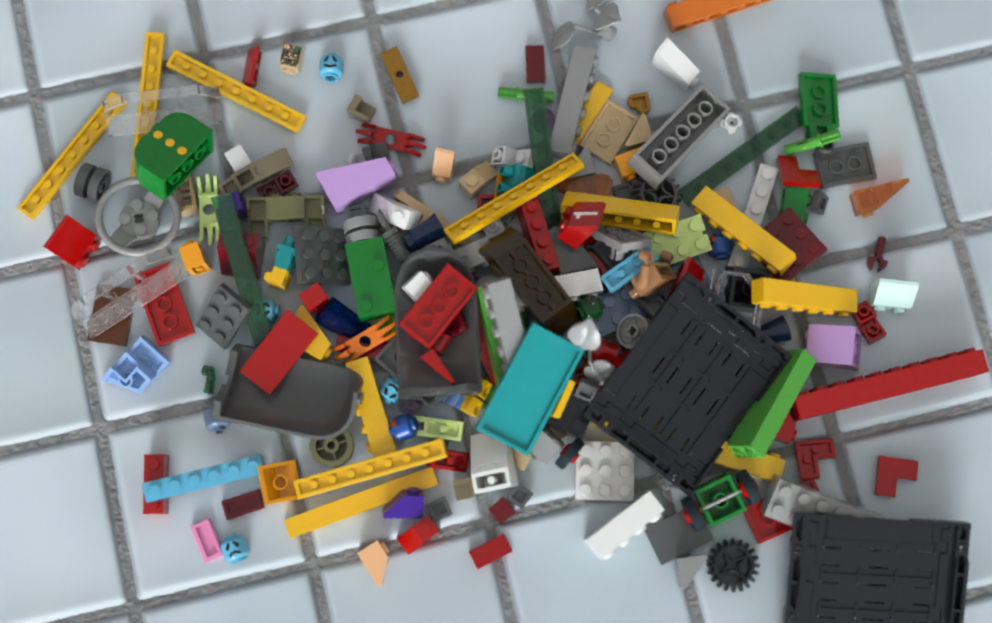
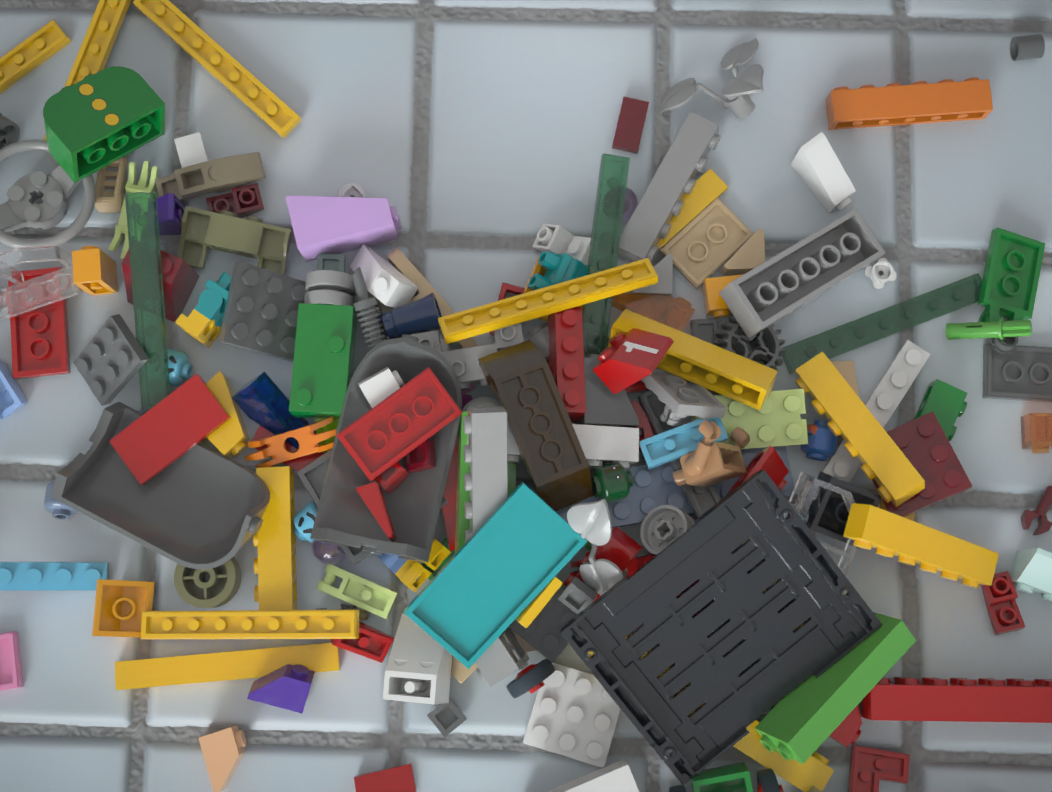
camera: 20 degrees right, 0 degrees up
(144, 121) = (73, 68): clear plate -> none
(210, 382) = (71, 441): clear green arm -> none
(235, 548) = (36, 683): medium azure head -> none
(243, 504) = (65, 625): dark red tile -> none
(252, 67) = (248, 34): red slope -> none
(291, 59) = (302, 36): brick -> none
(314, 298) = (238, 368): red panel -> none
(331, 67) = (352, 60): medium azure head -> none
(360, 110) = (376, 128): dark tan panel -> none
(376, 151) = (381, 188): dark grey panel -> none
(395, 65) = (439, 81): pearl gold tile -> none
(401, 143) = (417, 188): red piece -> none
(404, 427) = (311, 578): blue head -> none
(418, 534) = (293, 733): red slope -> none
(439, 509) = (331, 705): dark grey plate -> none
(443, 165) = (466, 231): light nougat slope -> none
(464, 489) = (371, 686): dark tan panel -> none
(477, 179) = (508, 261): tan slope -> none
(501, 510) = (417, 730): dark red tile -> none
(517, 94) = (593, 159): bright green axle -> none
(639, 102) = (760, 213): pearl gold tile -> none
(777, 330) = (869, 580): dark blue plant -> none
(795, 177) = (947, 368): red tile -> none
(819, 202) = (975, 415): dark grey plate -> none
(834, 345) = (945, 624): lavender slope -> none

